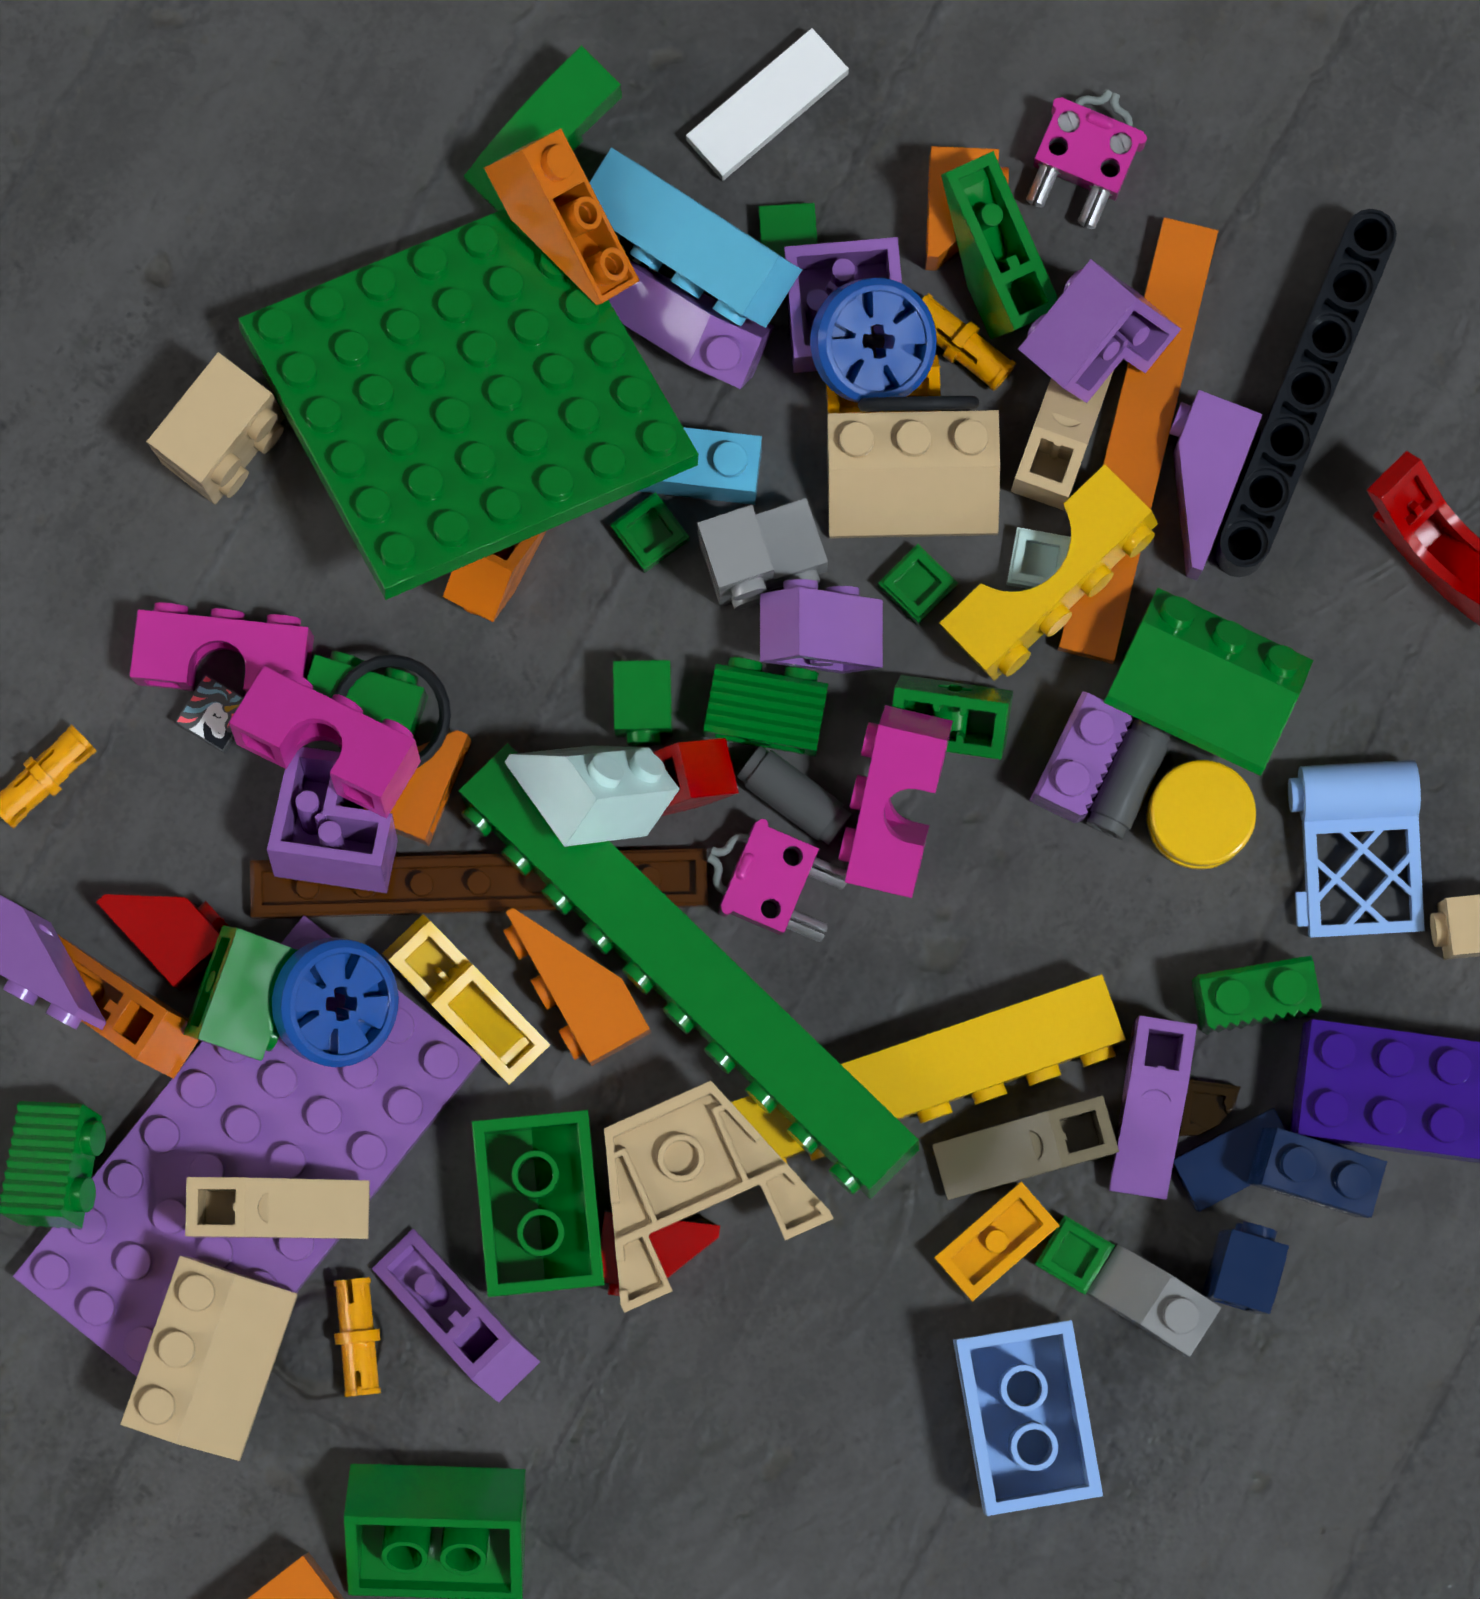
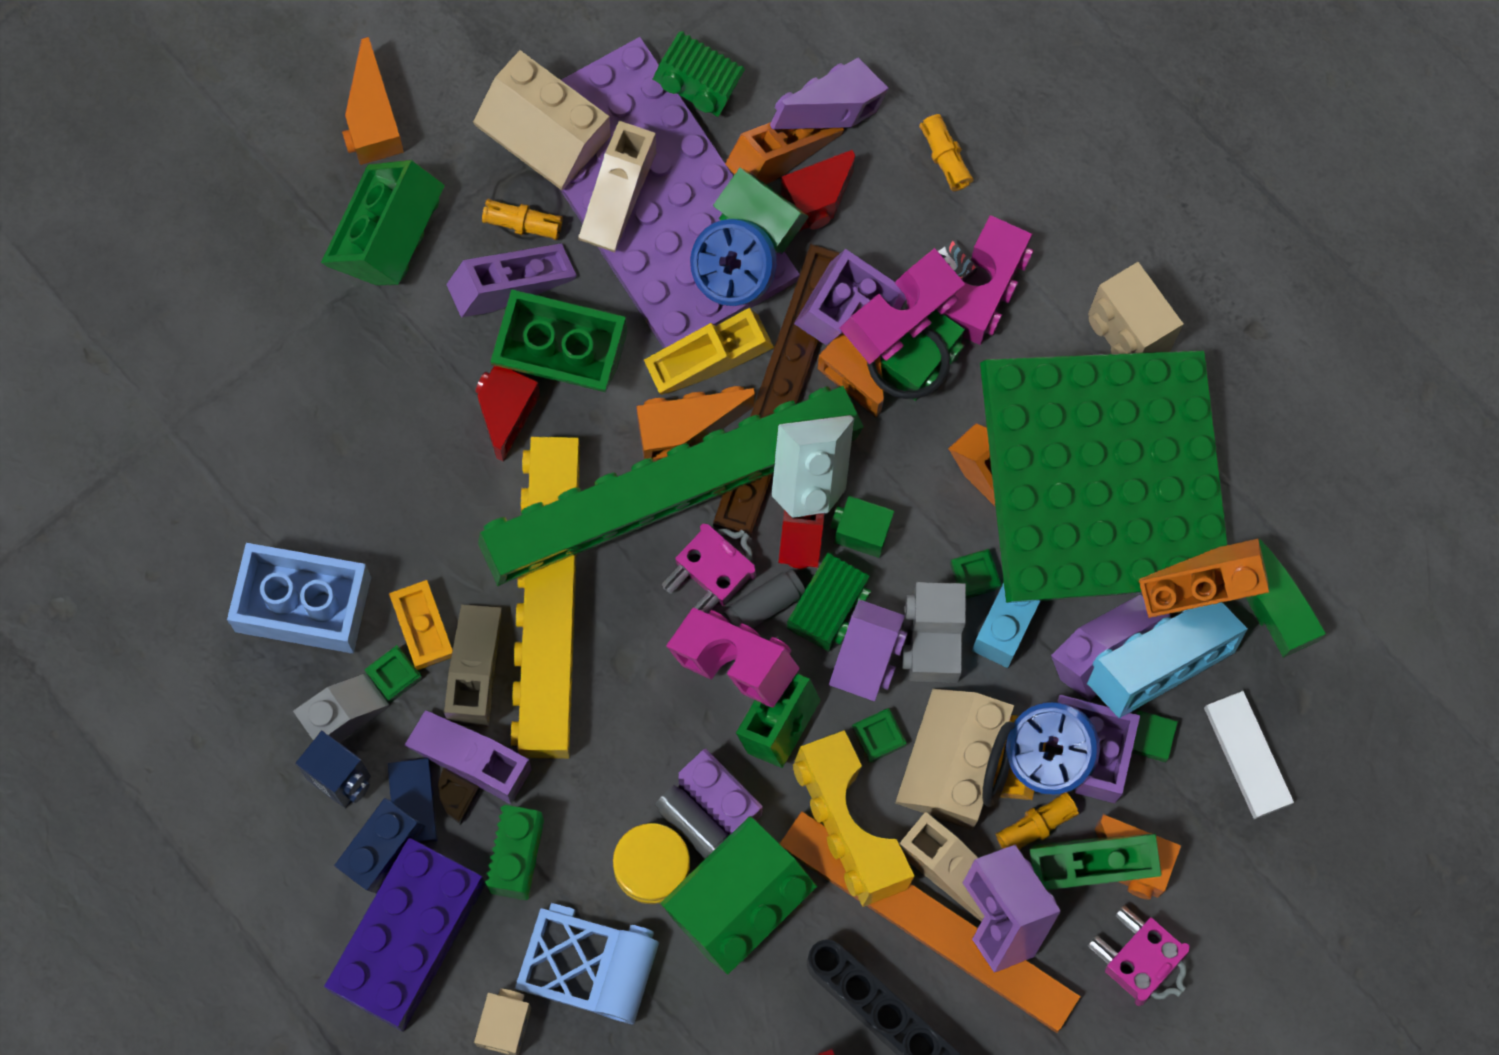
camera: 105 degrees right, 10 degrees down
(682, 1162) = (548, 437): tan wing -> none
(1036, 557) = (870, 816): light aqua tile -> none
(1207, 466) = (893, 959): medium lavender slope -> none

